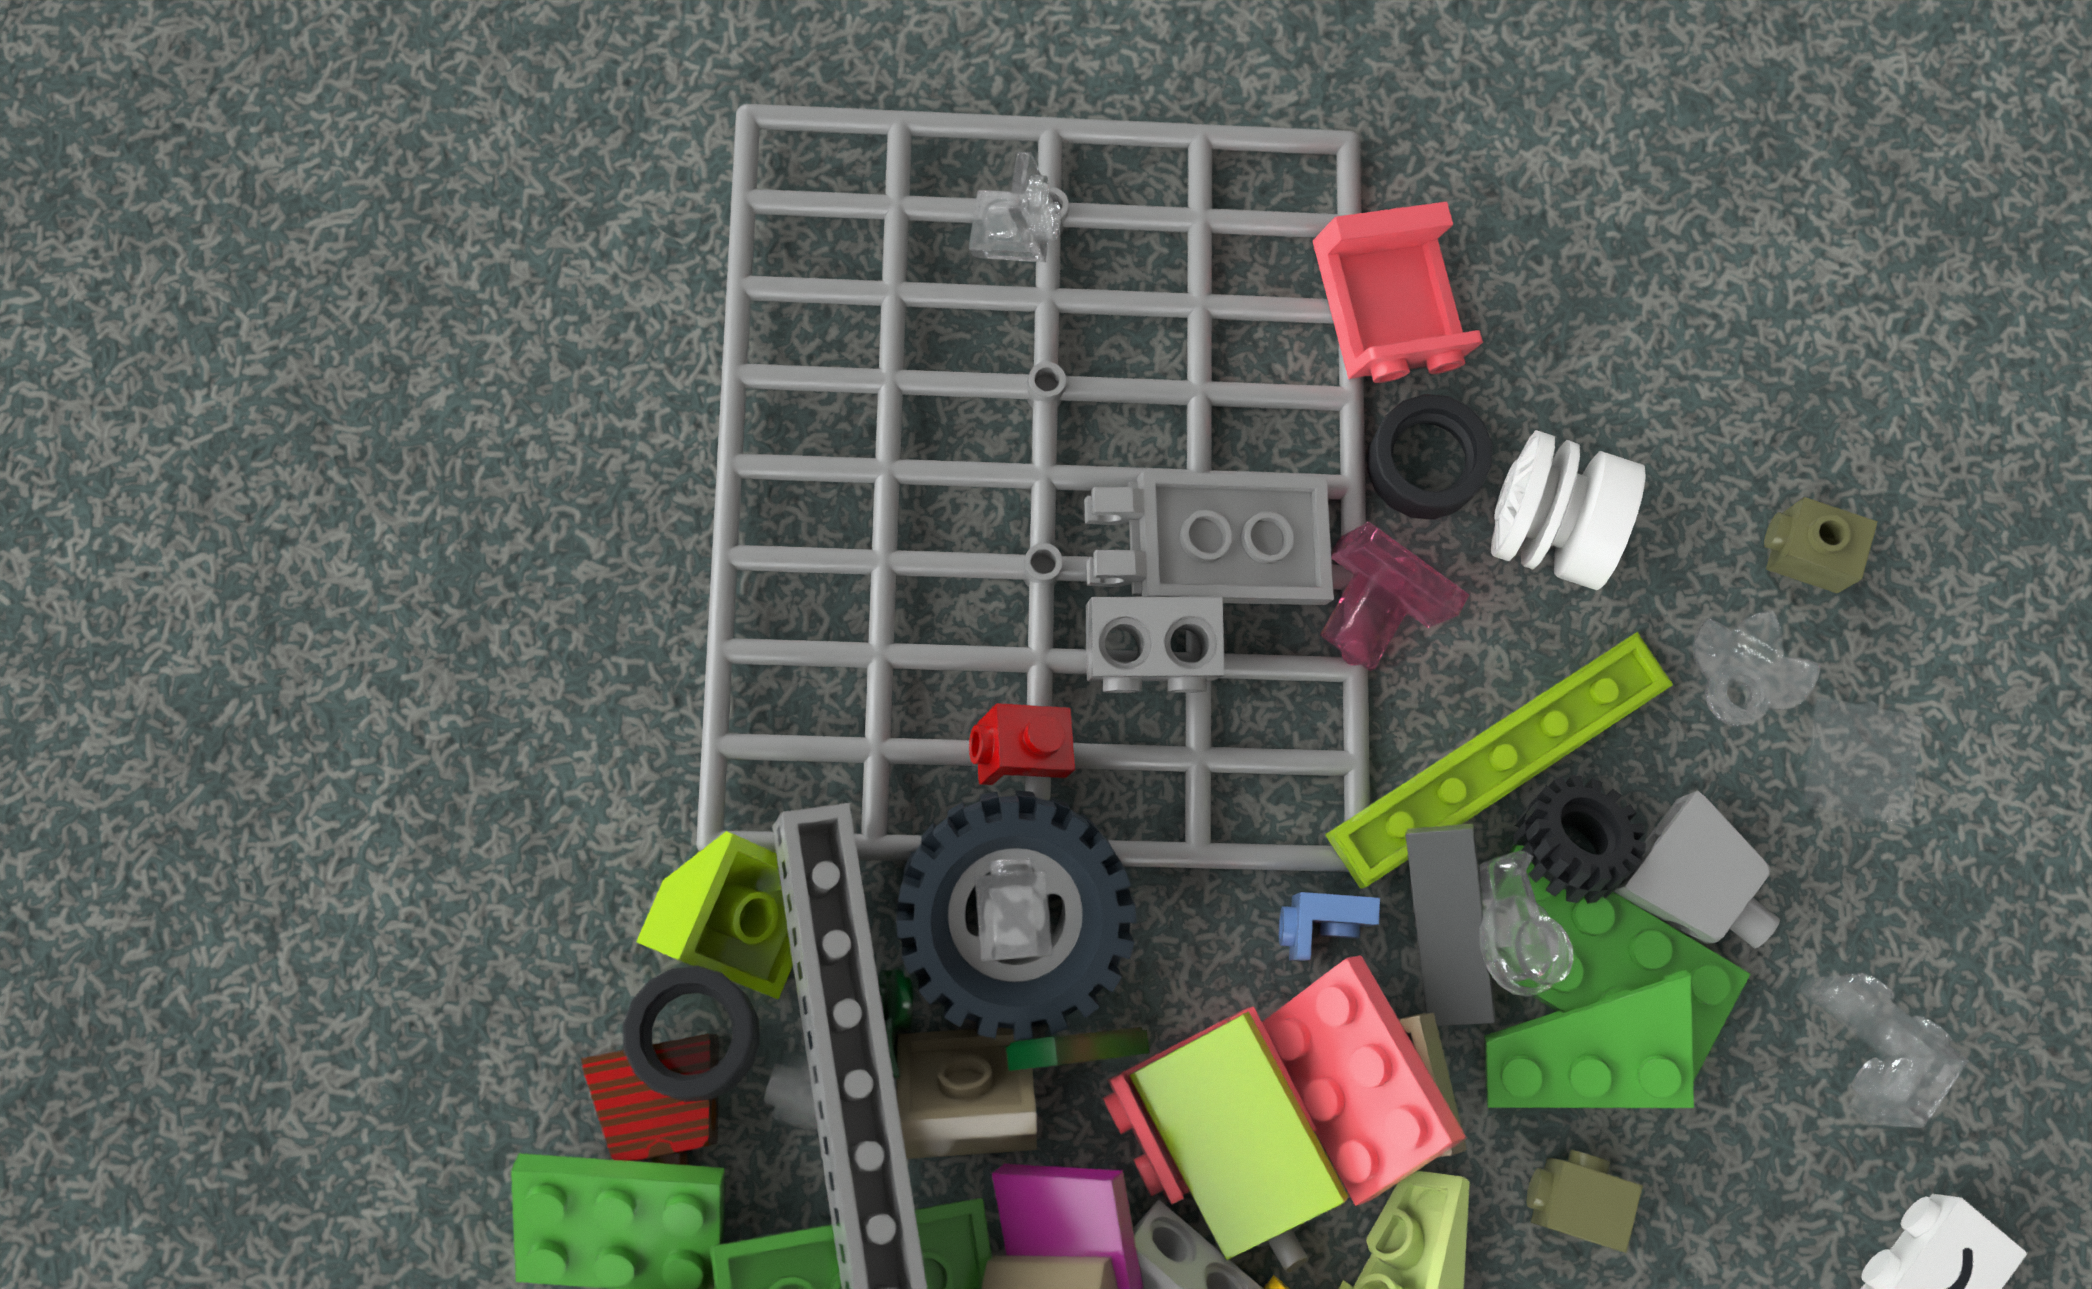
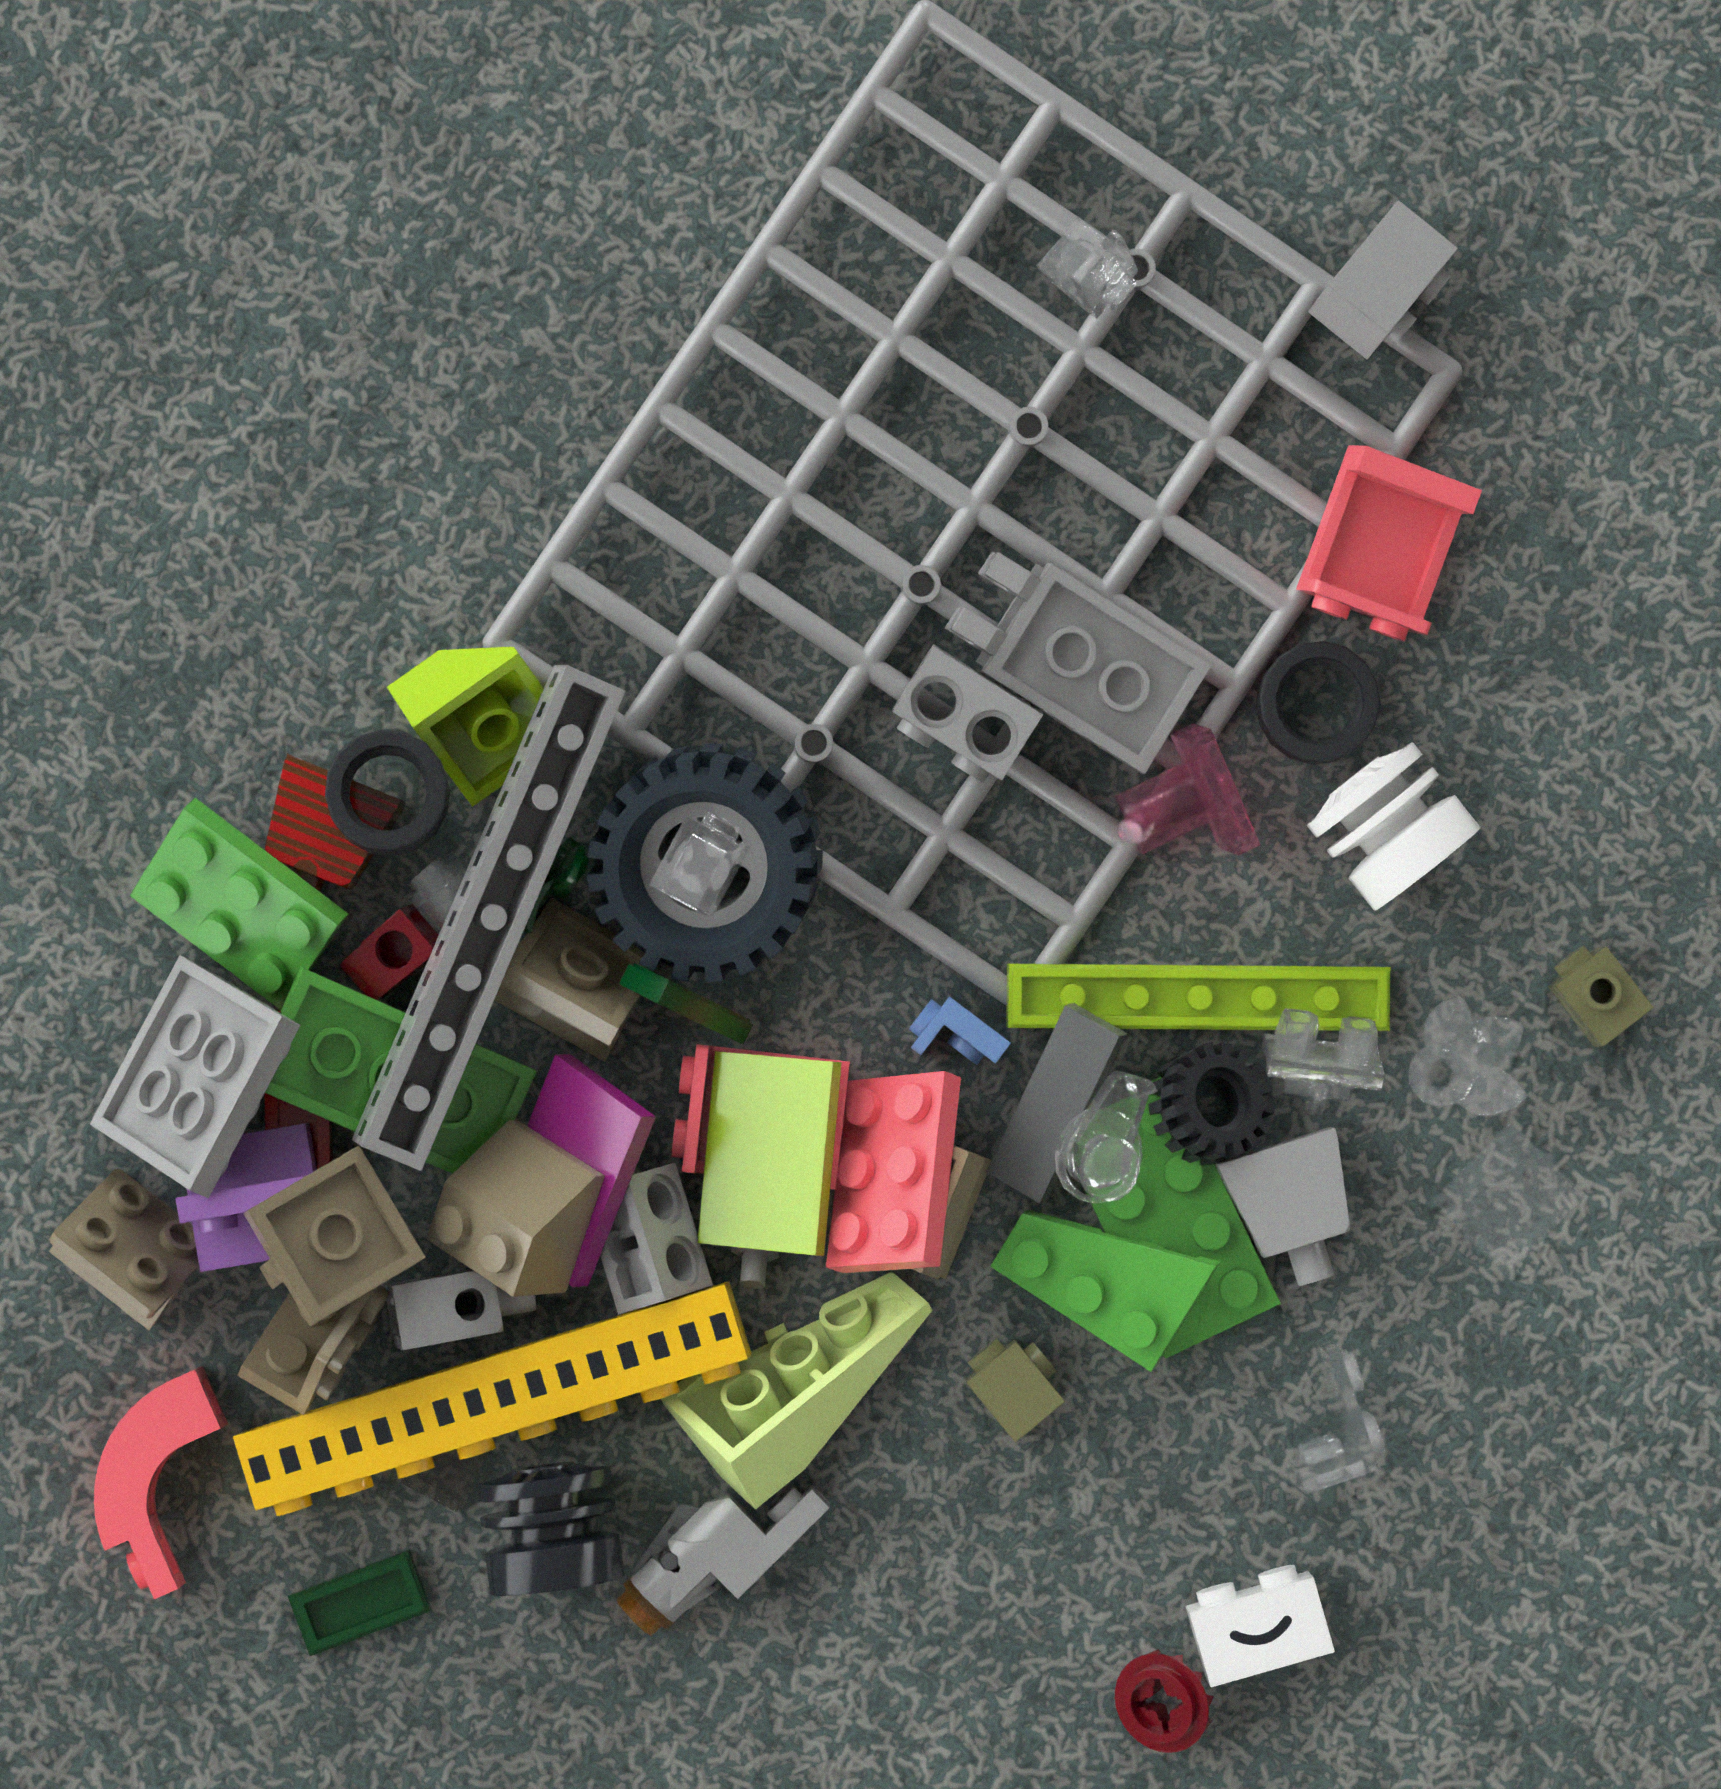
camera: 40 degrees right, 10 degrees up
(786, 1178) = (391, 953): none -> dark red leg
(1022, 742) = (802, 728): red bracket -> none
(1255, 96) = (1382, 281): none -> light grey brick
(1646, 750) = (1321, 1067): none -> clear hips

